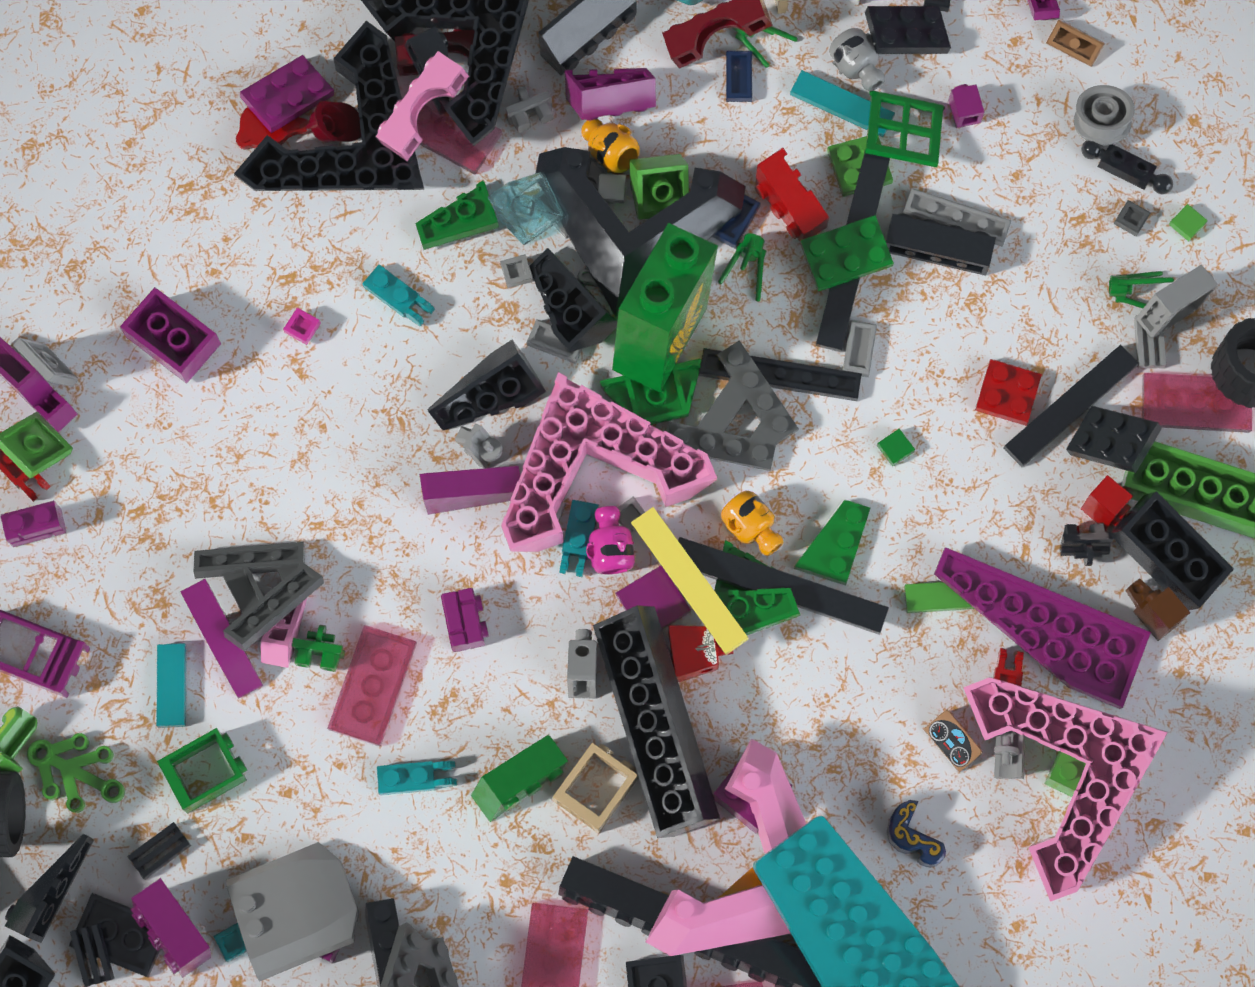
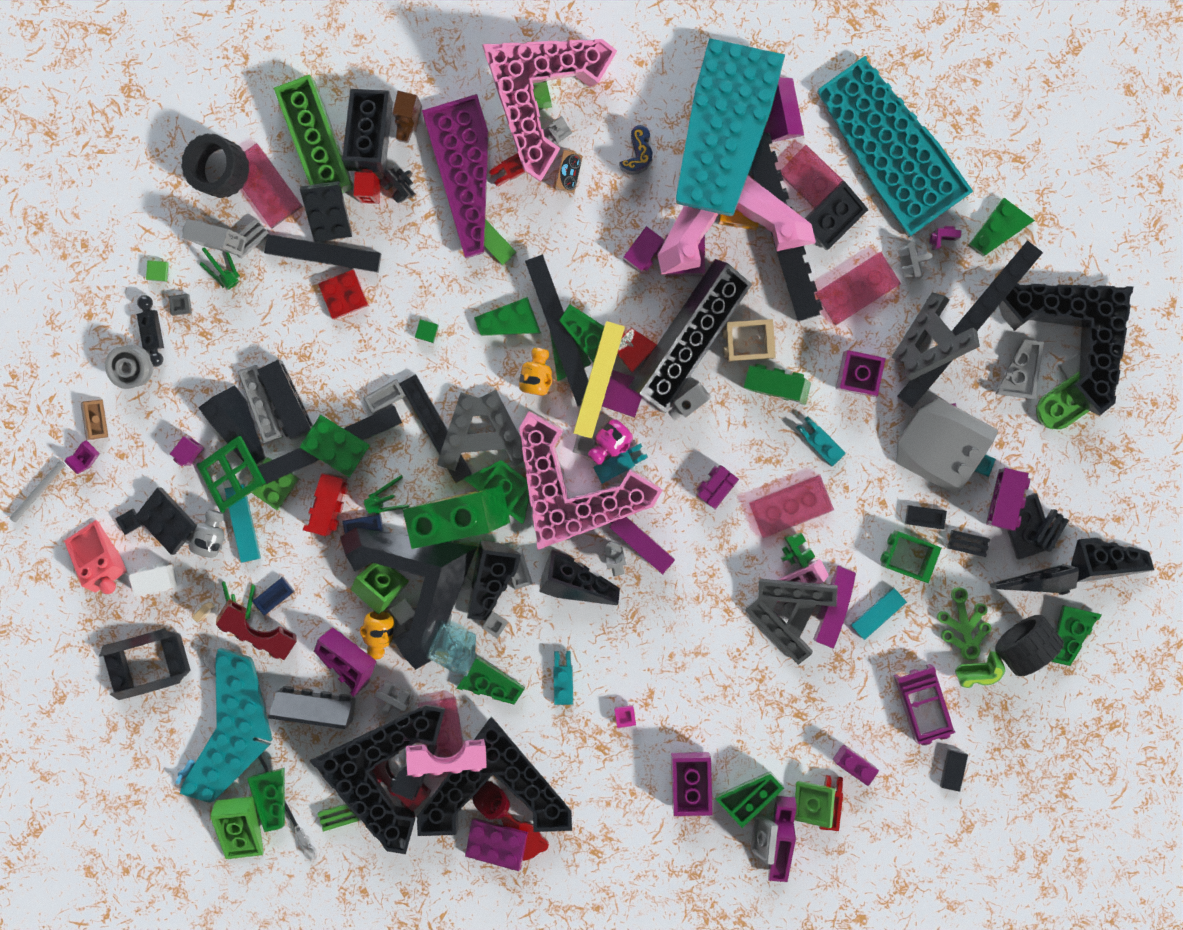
camera: 130 degrees left, 15 degrees up
(101, 383) = (750, 797): none -> green wedge
(230, 826) = (925, 517): none -> black tile
(454, 880) = (860, 373): none -> magenta brick
(795, 750) = (643, 250): none -> magenta brick
(962, 174) = (231, 418): none -> black wedge

